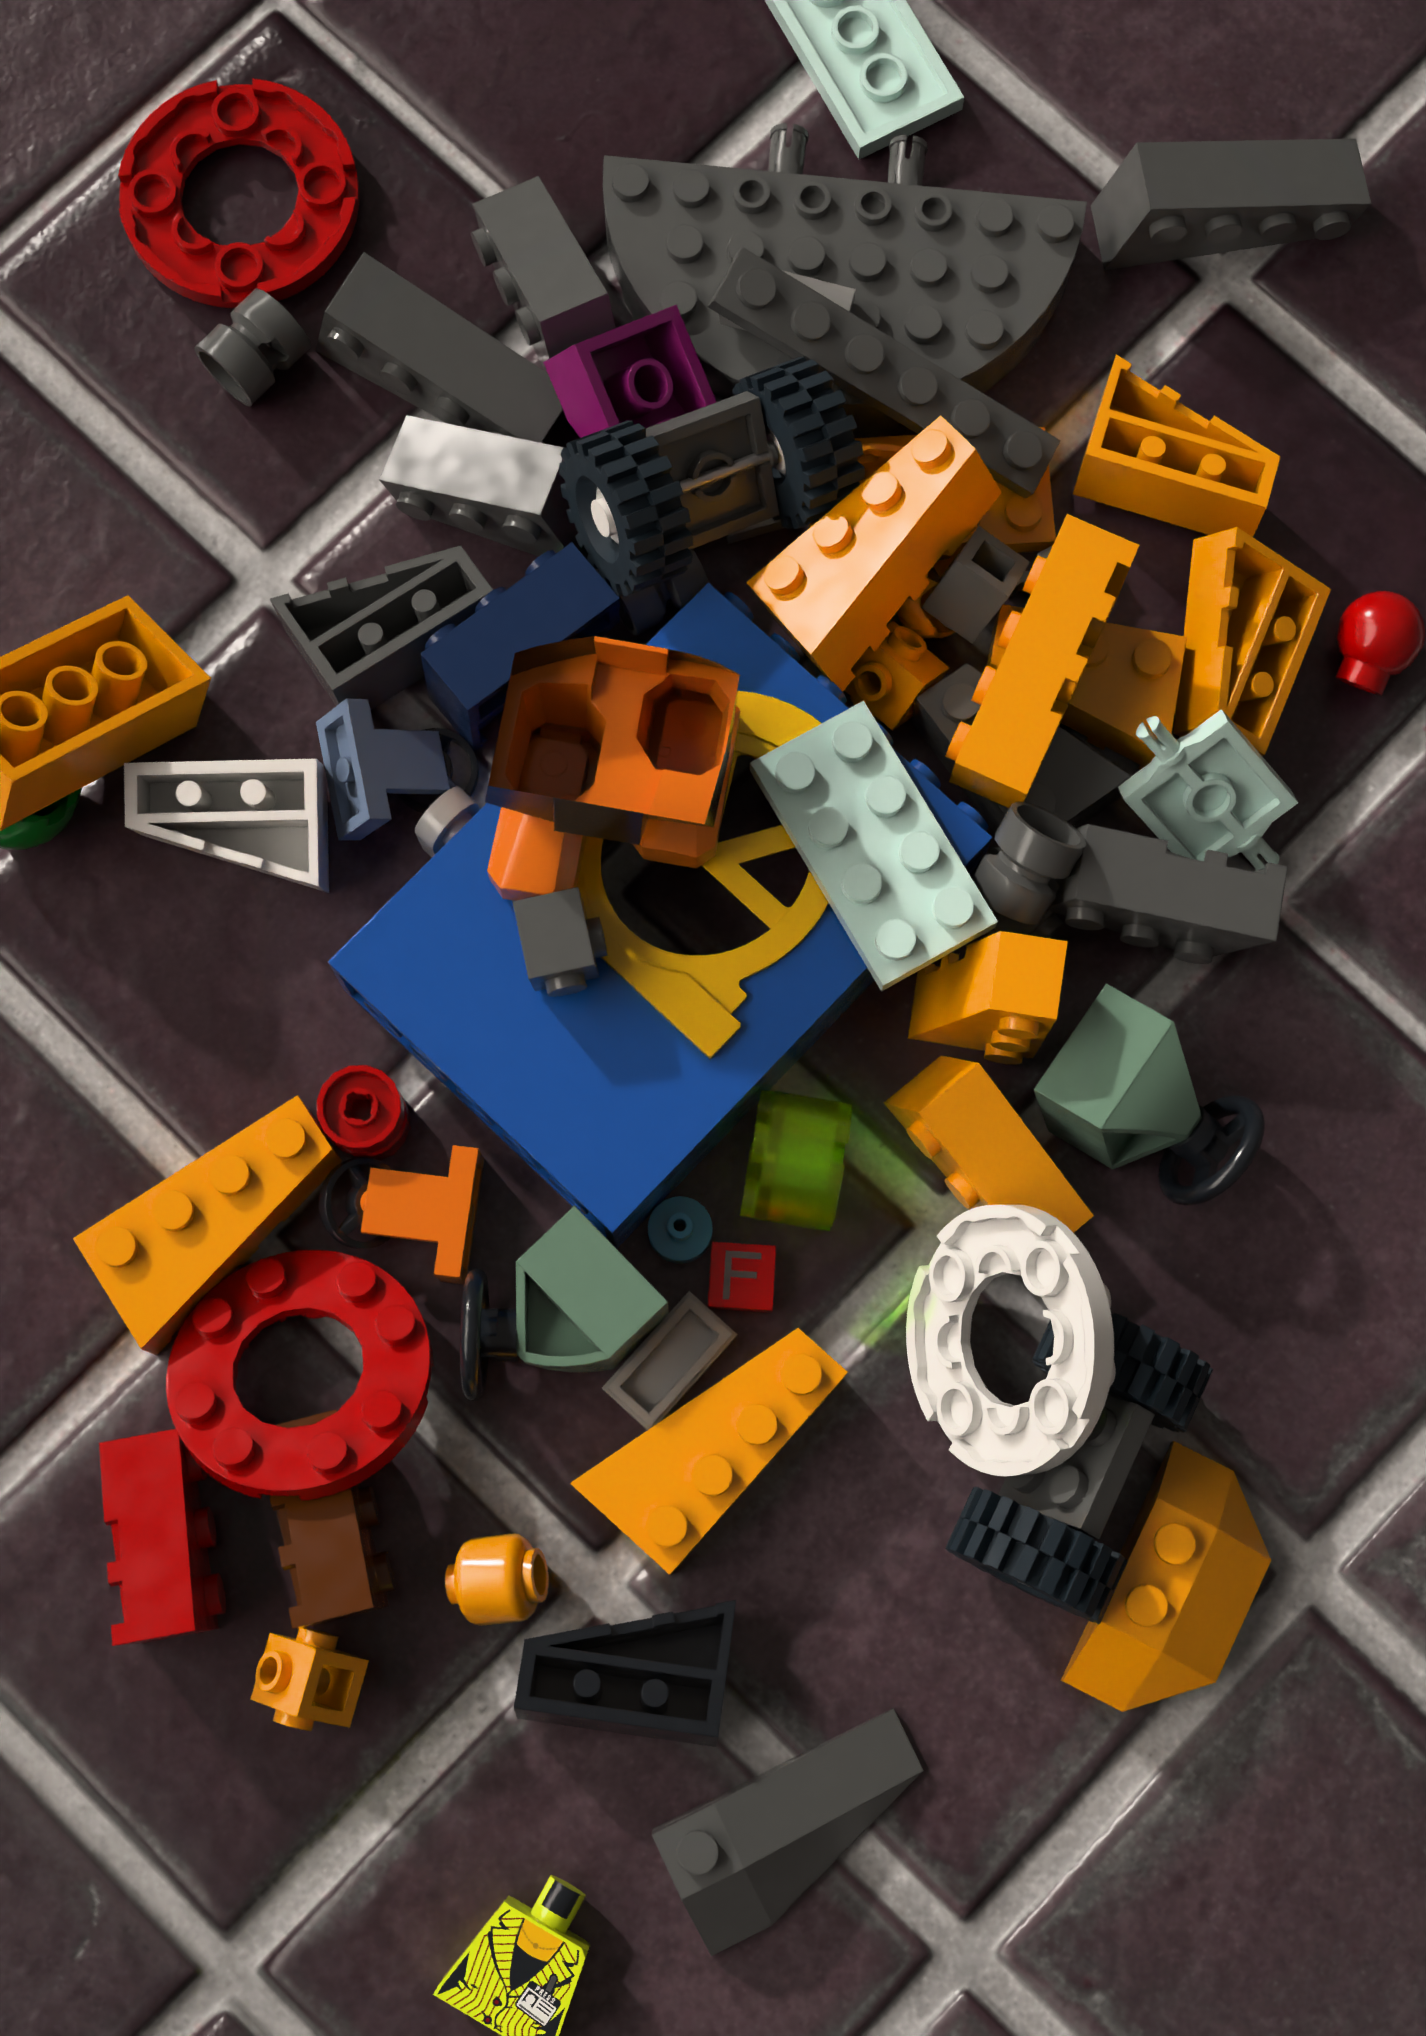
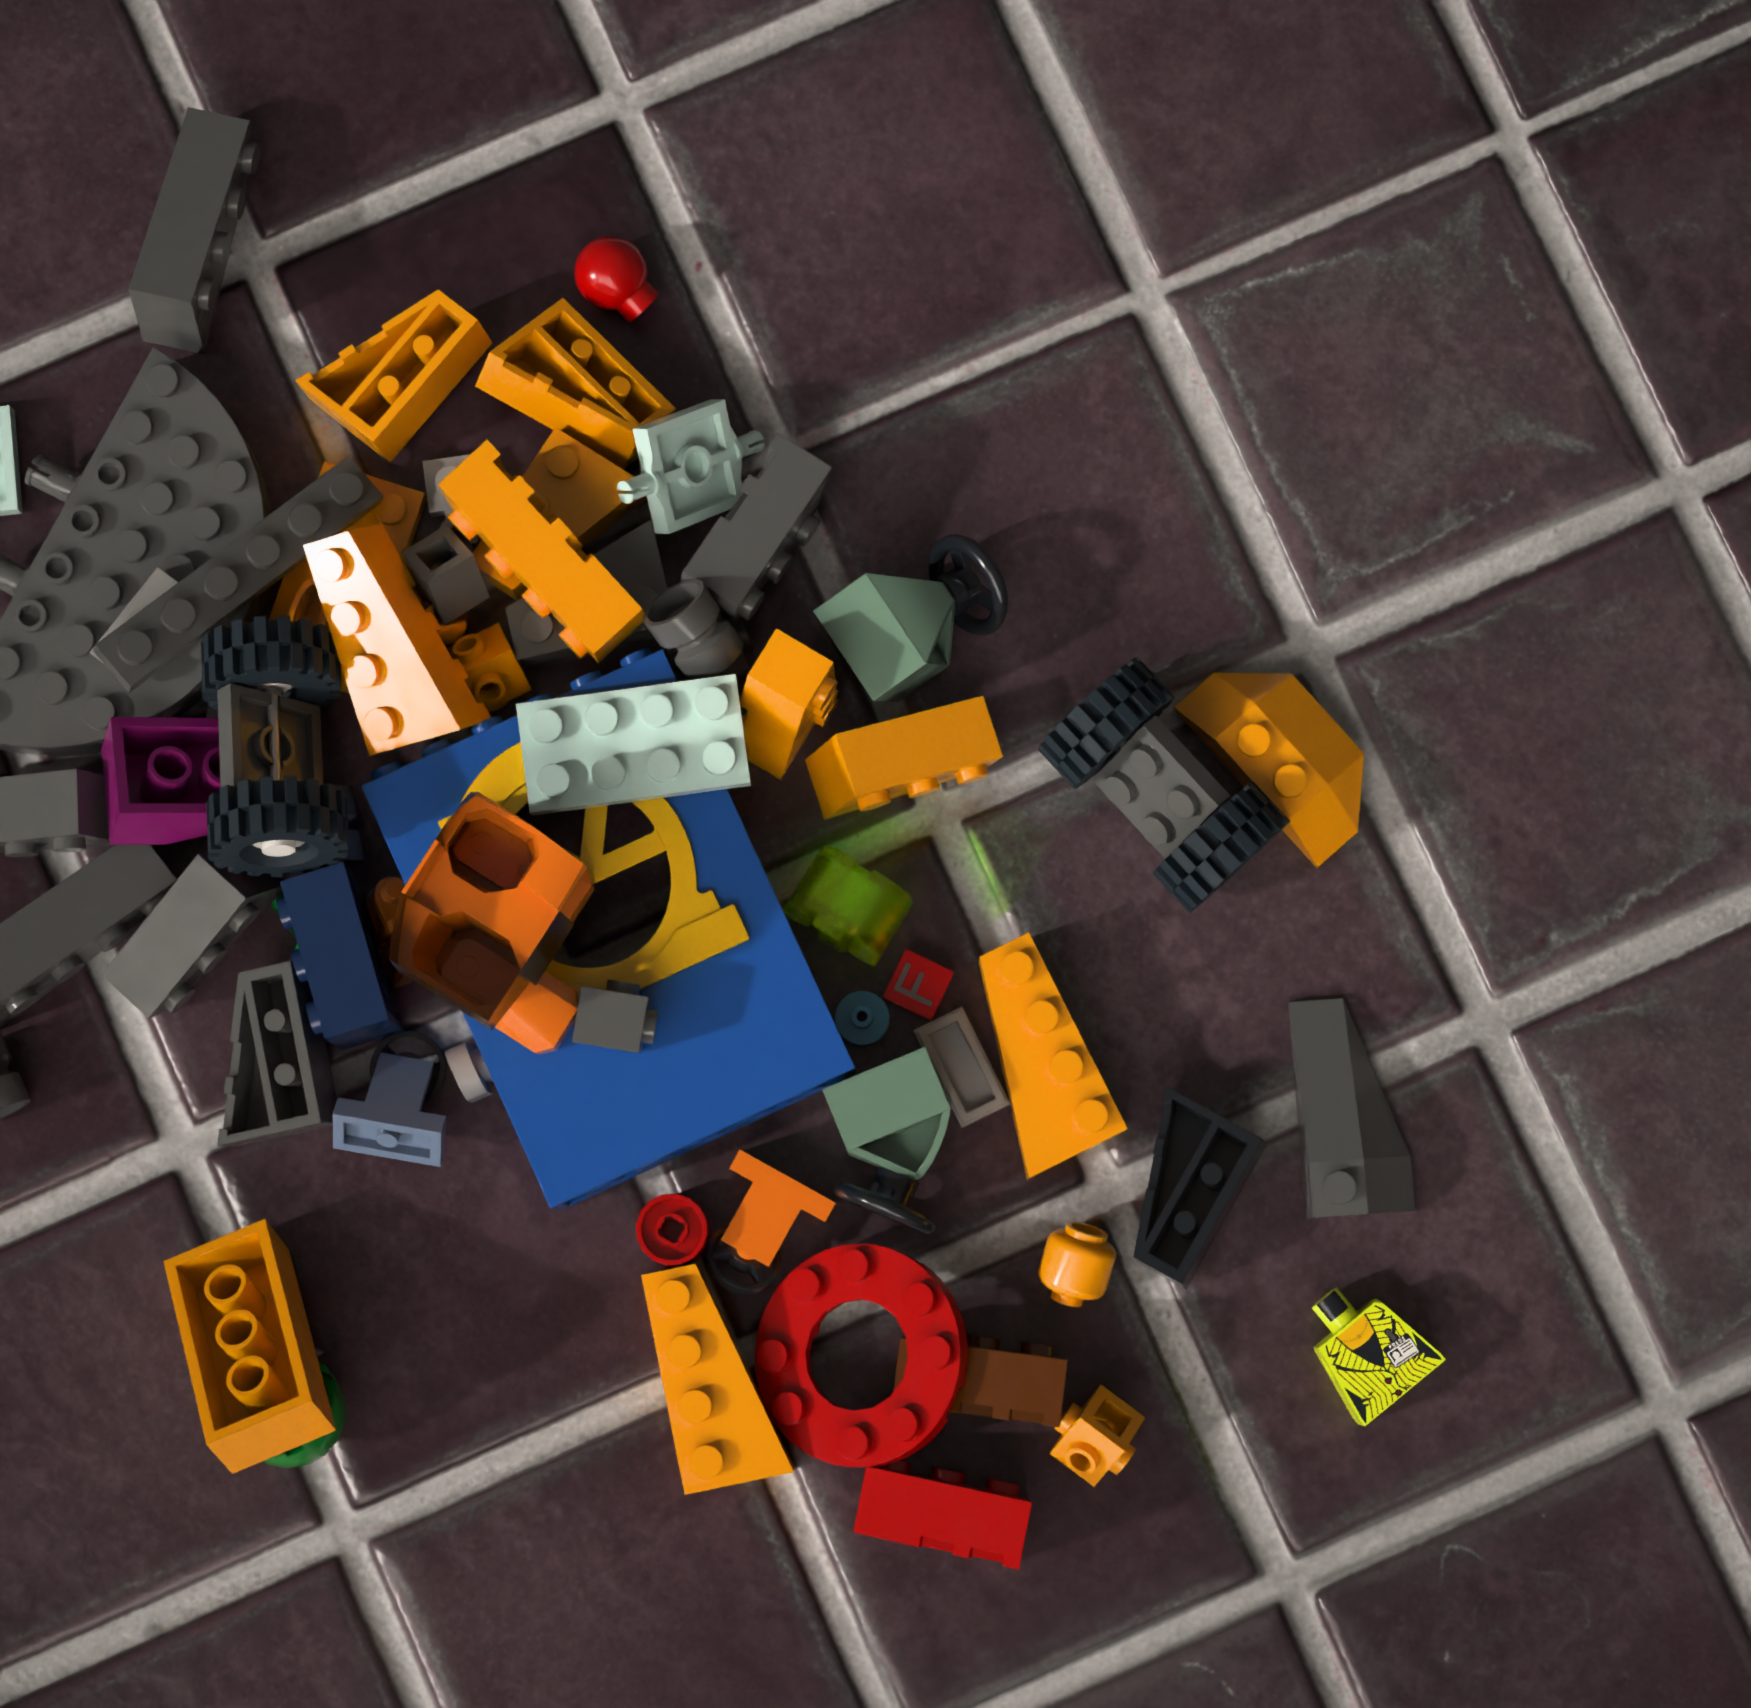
camera: 65 degrees left, 5 degrees up
(237, 811) = (385, 1239): white wedge -> none
(943, 1296) = (1041, 857): white plate -> none

